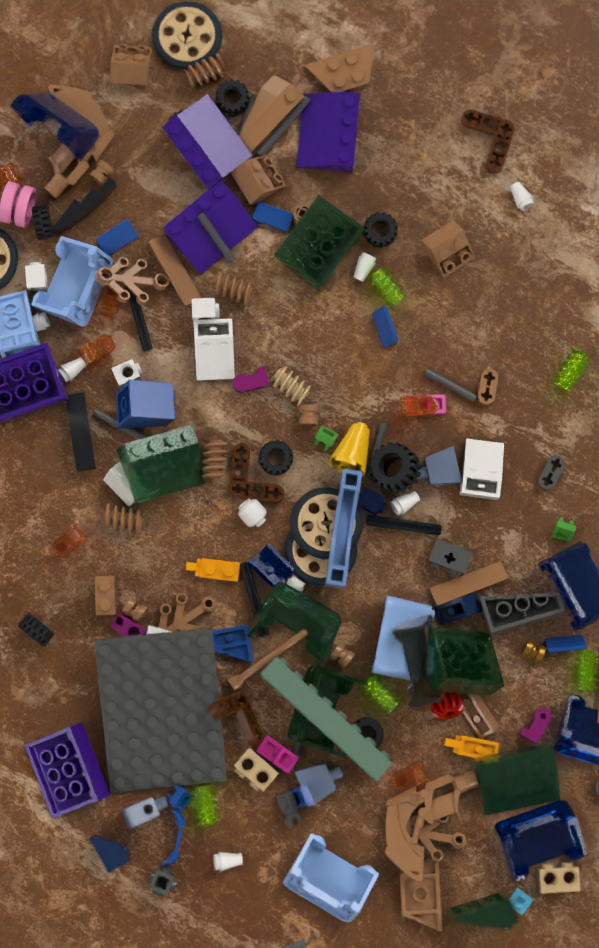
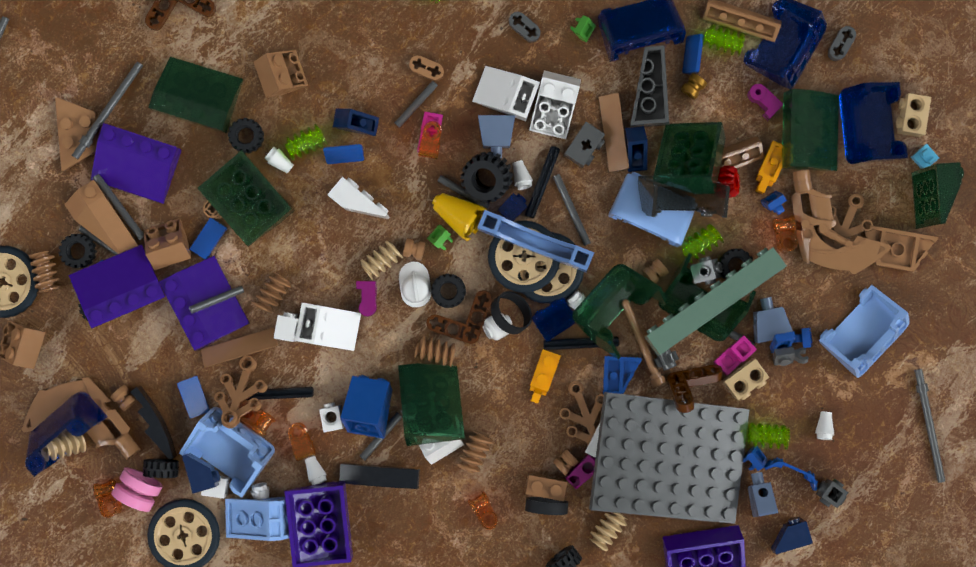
camera: 75 degrees left, 5 degrees up
(45, 127) = (62, 444): none -> tan piece
(45, 260) = (200, 473): none -> dark blue slope
(77, 667) = (608, 530): none -> tan piece
(87, 599) = (546, 506): none -> black tyre
(257, 686) = (666, 360): none -> dark grey gear
(274, 424) = (415, 284): none -> white piece
(279, 532) = (500, 320): none -> black tyre
(311, 820) = (805, 337): none -> blue tile
(340, 81) = (86, 140): none -> dark grey bar
(343, 341) = (351, 199): none -> white slope
(354, 705) = (706, 271): none -> dark grey brick
(382, 560) = (571, 209): none -> dark grey bar
(408, 174) = (196, 94): none -> clear green slope
(418, 330) = (355, 121): none -> dark blue slope
(438, 757) = (774, 201): none -> blue tile
(482, 519) = (555, 104): none -> white slope

